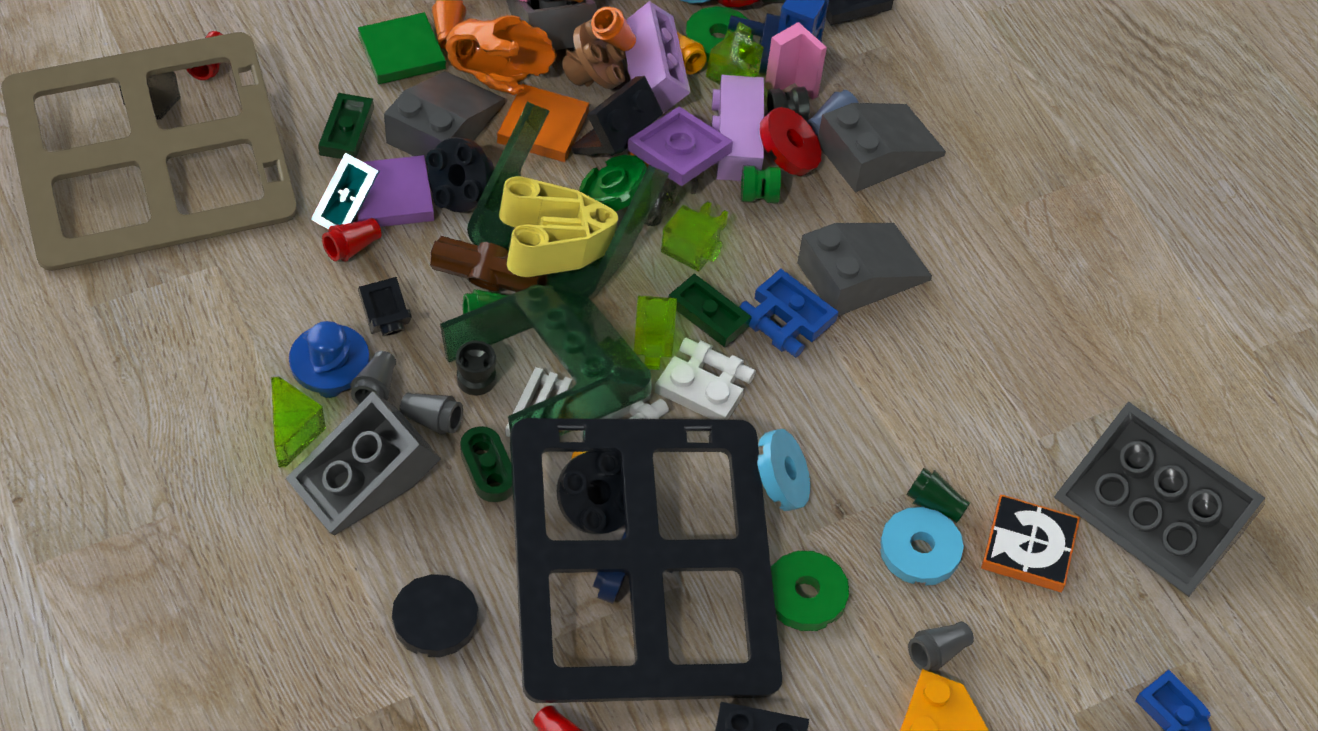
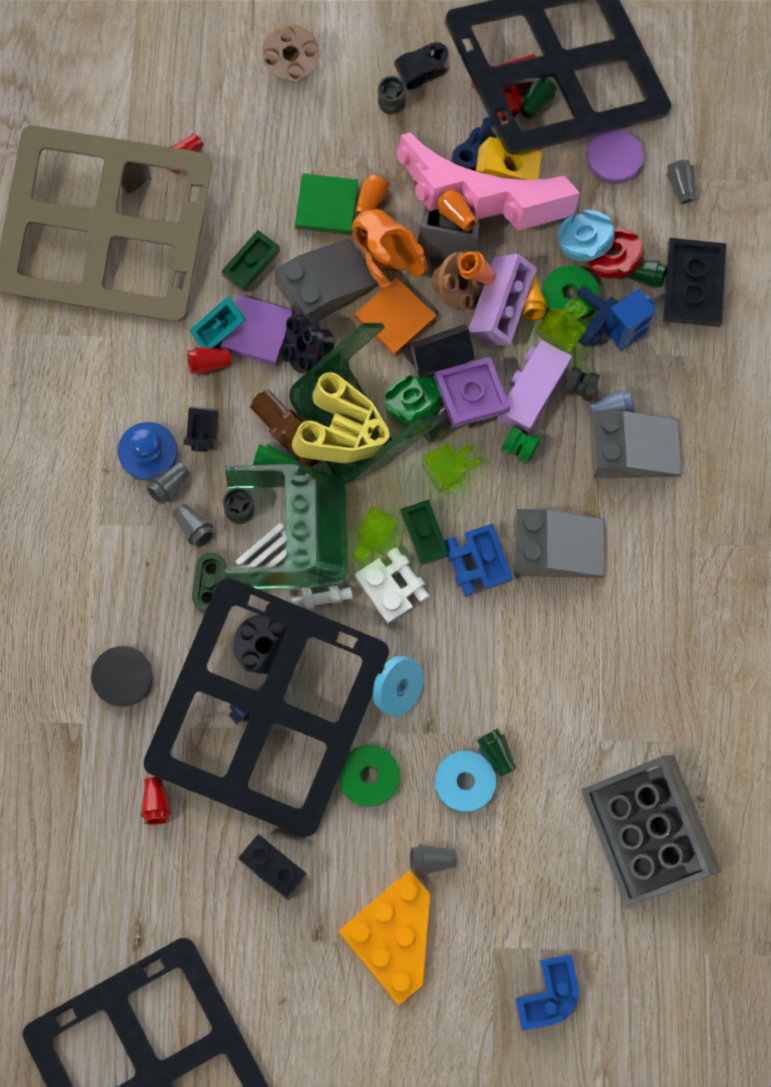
camera: 30 degrees right, 20 degrees up
(295, 421) = (98, 491): clear neon green slope -> none
(362, 464) = (128, 546): dark grey slope -> none
(790, 141) = (575, 419): red tile -> none
(797, 59) = (603, 346): bright pink panel -> none
(1030, 543) = (541, 816): tile -> none

